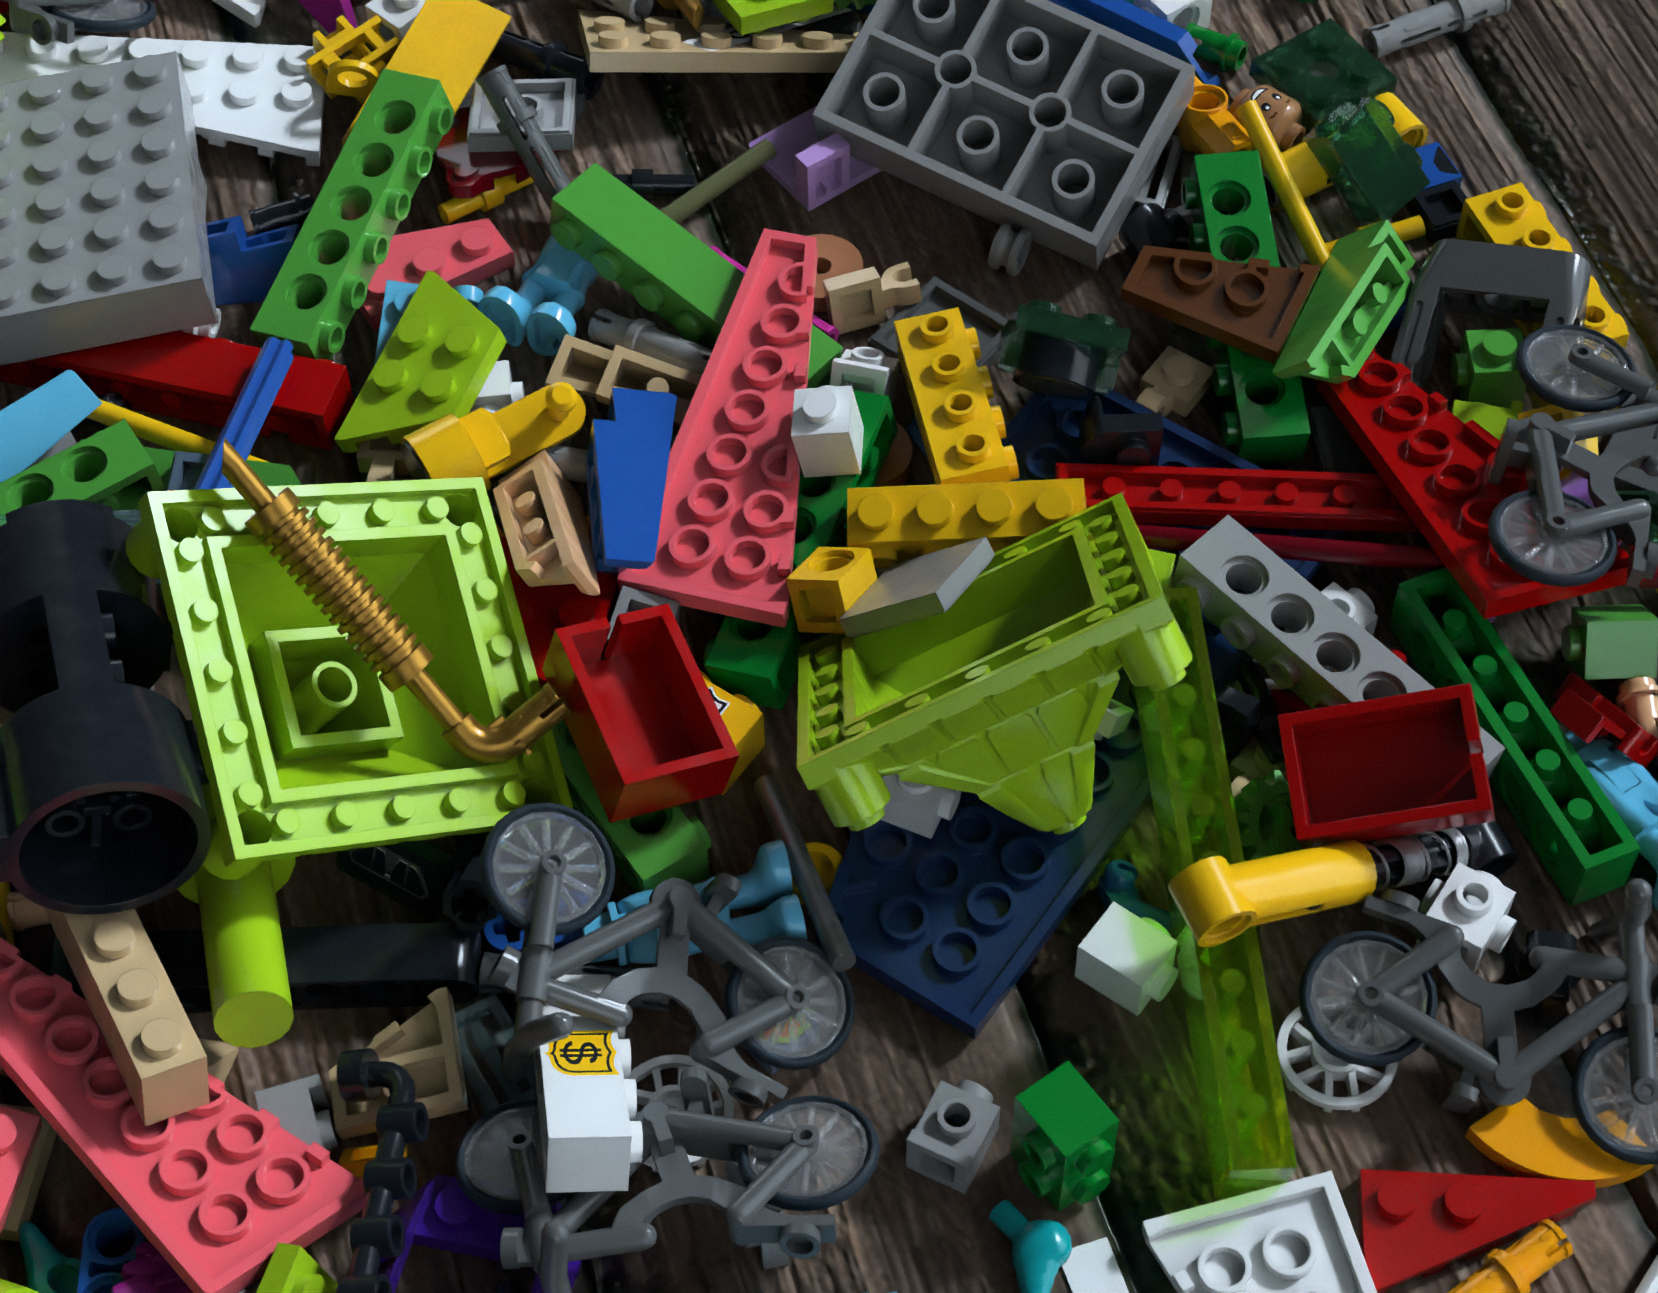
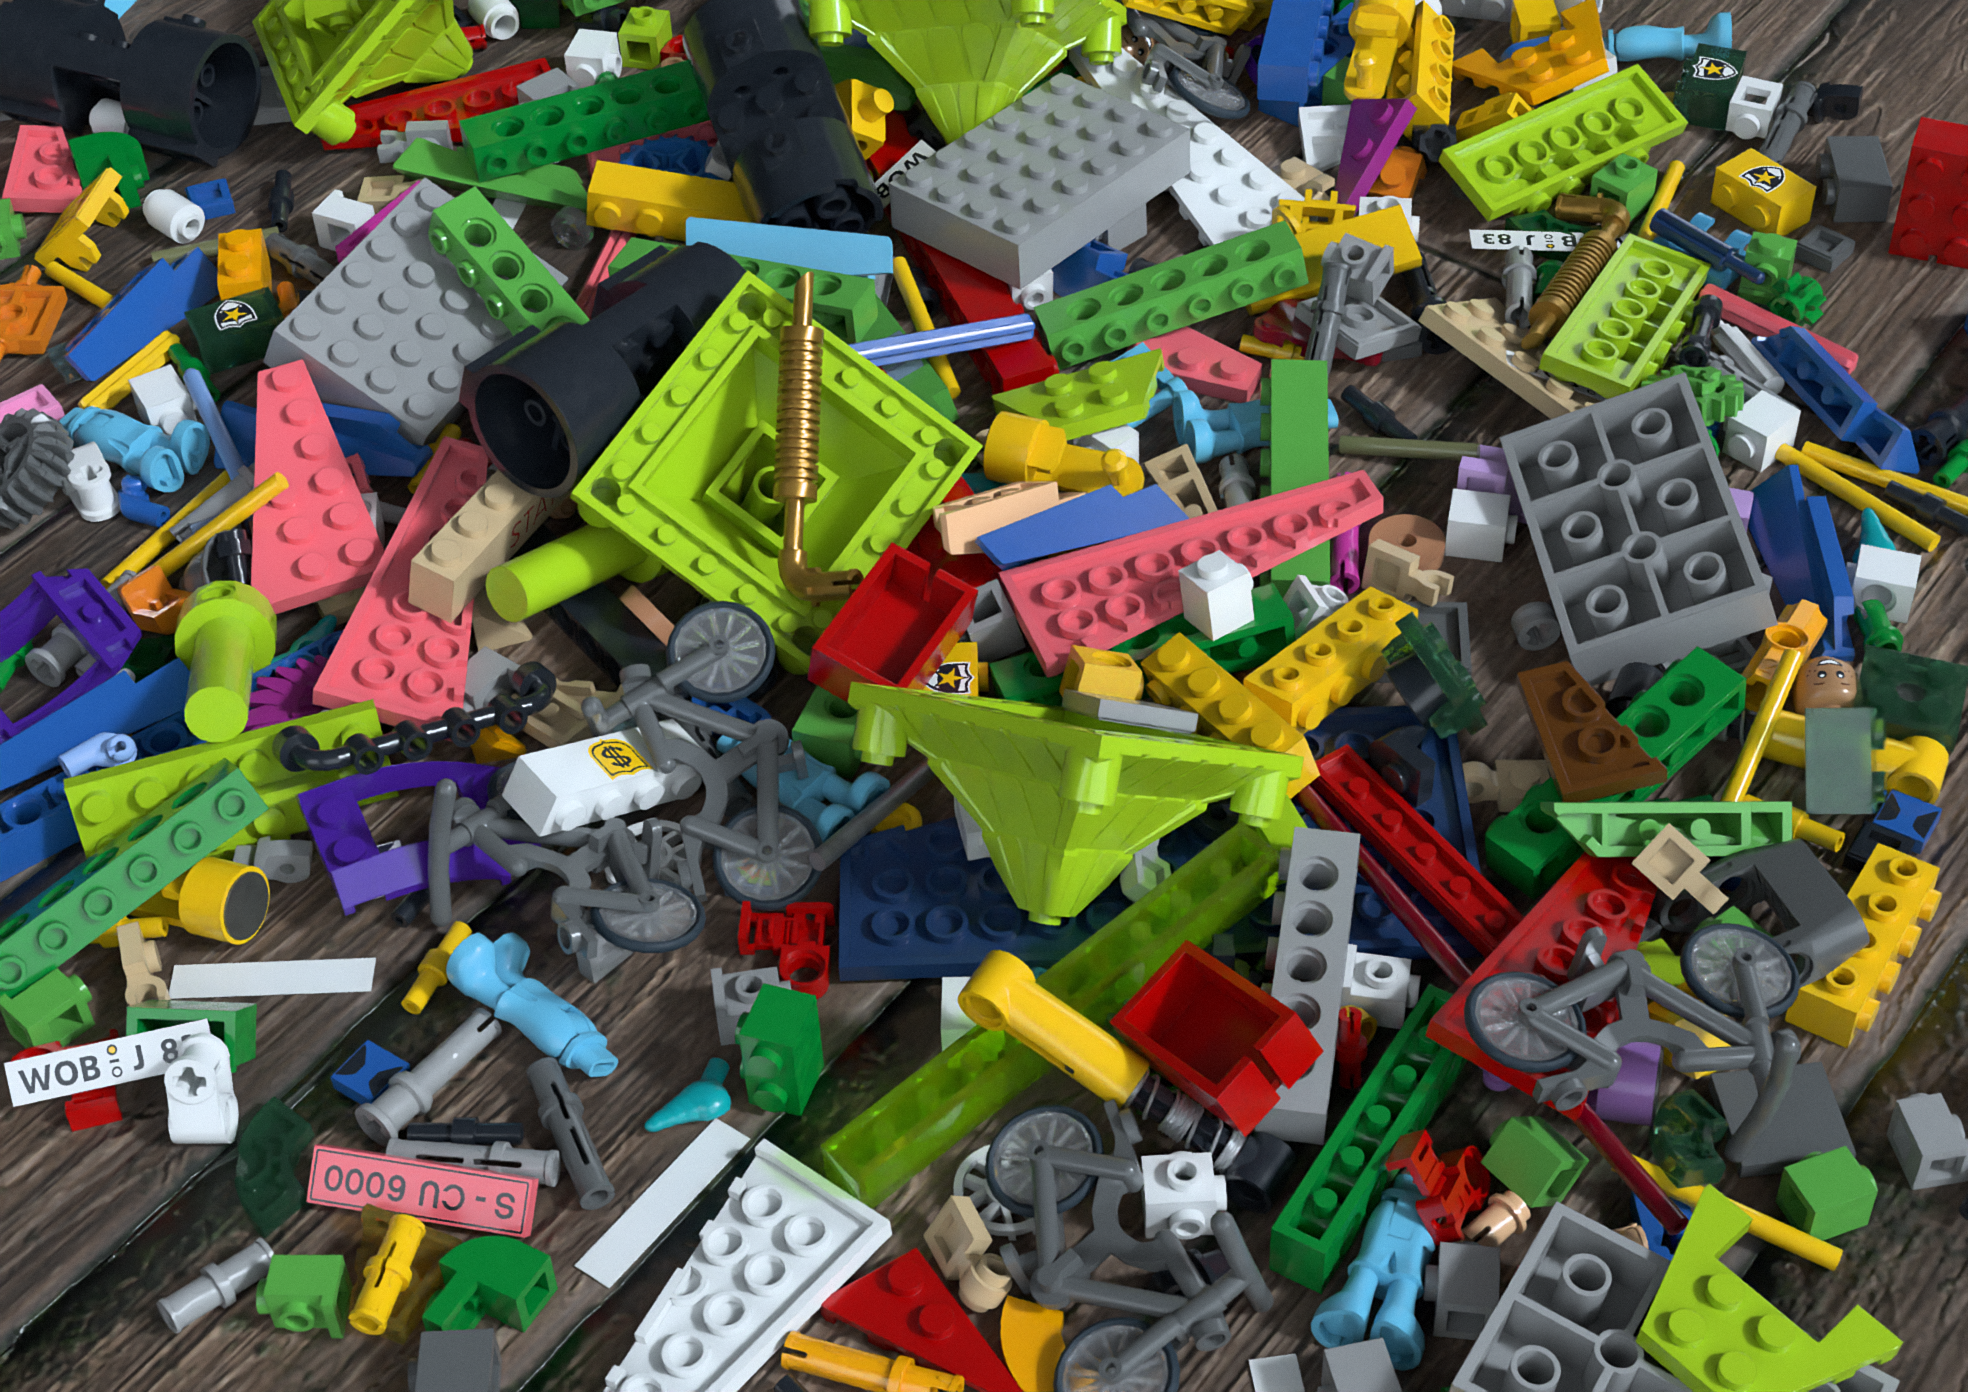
camera: 55 degrees right, 10 degrees down
(273, 29) = (1304, 176): none -> tan plate
(356, 910) = (647, 613): none -> nougat piece
(473, 56) = (1370, 266): none -> light grey brick
(855, 204) = (1479, 525): none -> white brick
(891, 1040) = (796, 938): none -> red piece
(1388, 1126) = (958, 1245): none -> tan plate
(1409, 335) = (1676, 865): none -> tan plate

